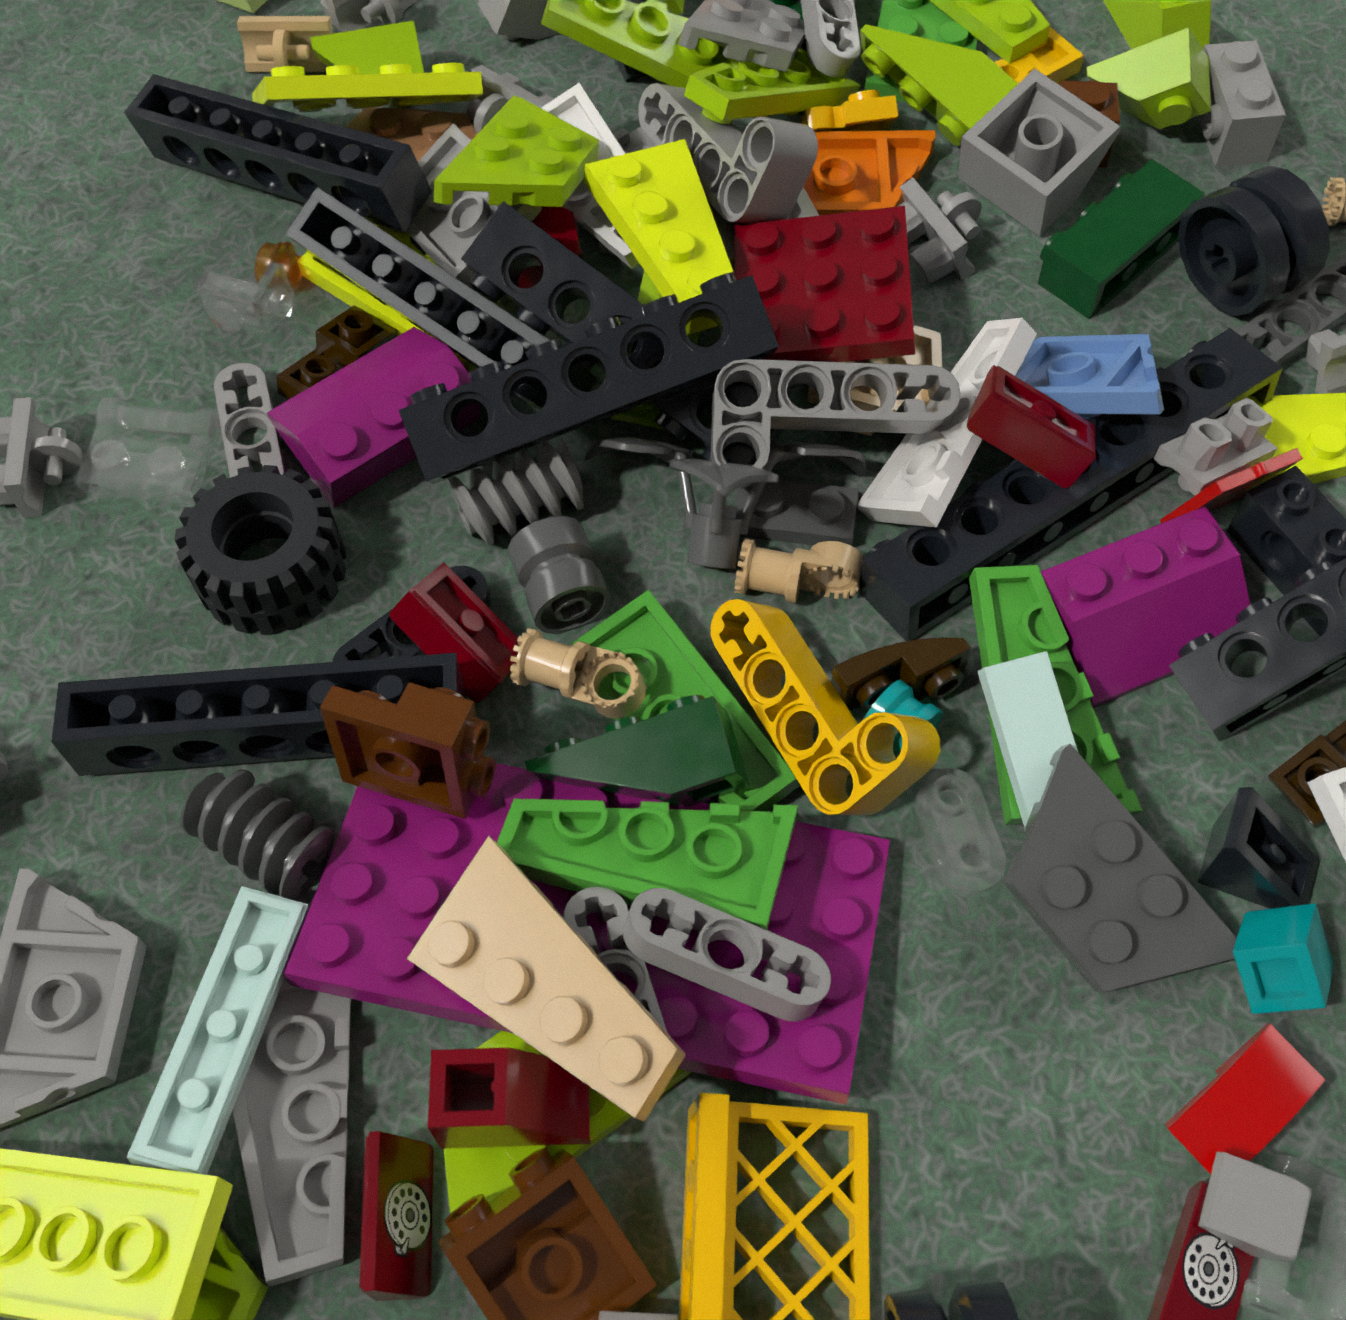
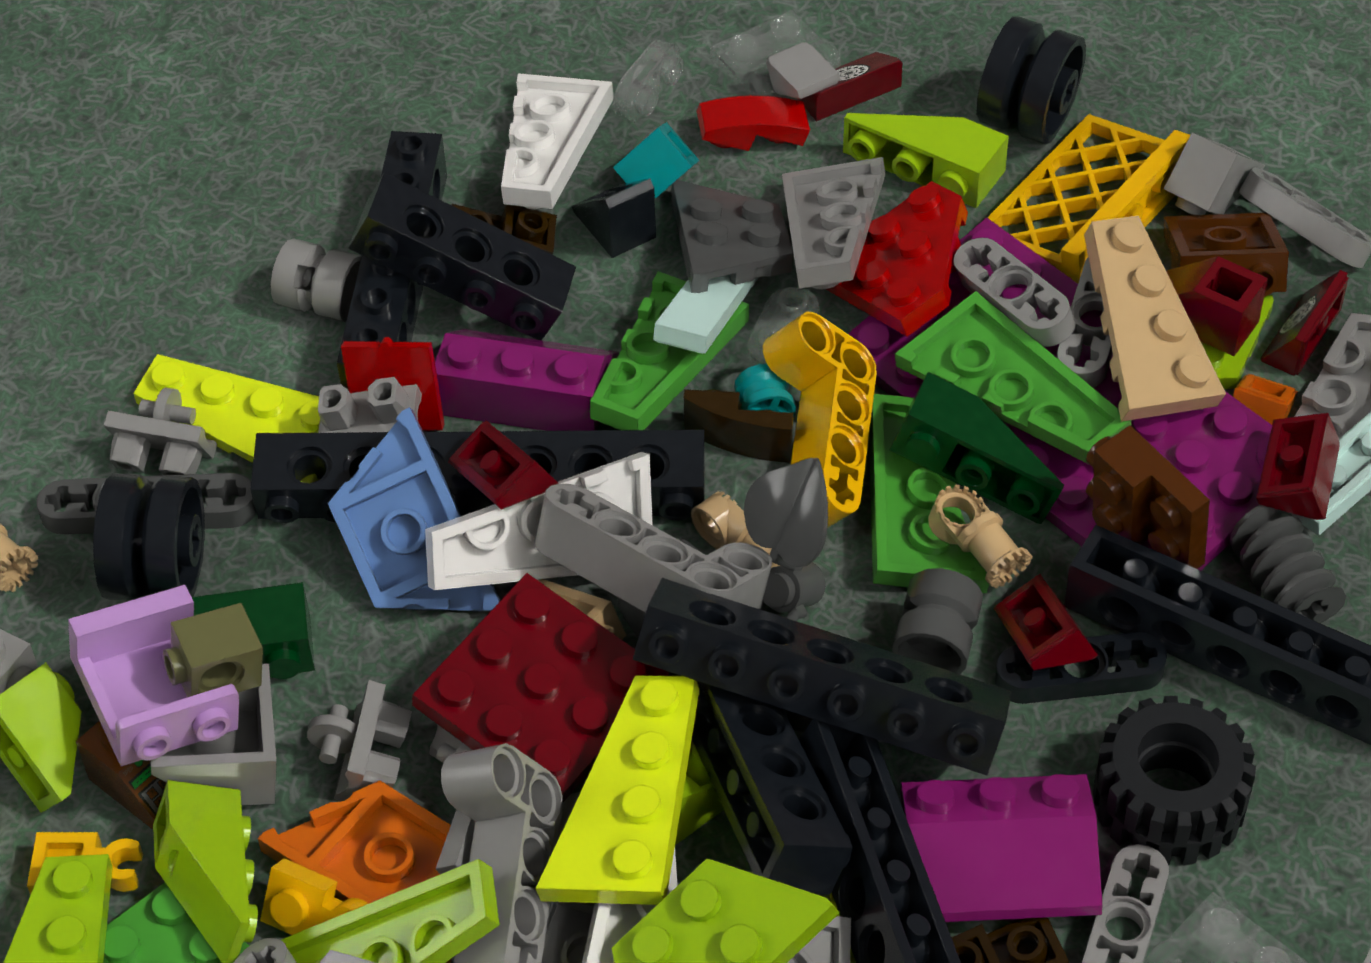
camera: 145 degrees left, 10 degrees down
(283, 918) = (1300, 465): none -> dark red slope
(392, 1073) = (1265, 397): none -> orange slope
(899, 968) = (908, 260): none -> red plate
(981, 1201) = (931, 148): none -> lime slope
(1027, 982) = (831, 218): none -> light grey wing
(1065, 116) = (214, 651): none -> olive brick
(1094, 101) = (127, 682): none -> lavender panel

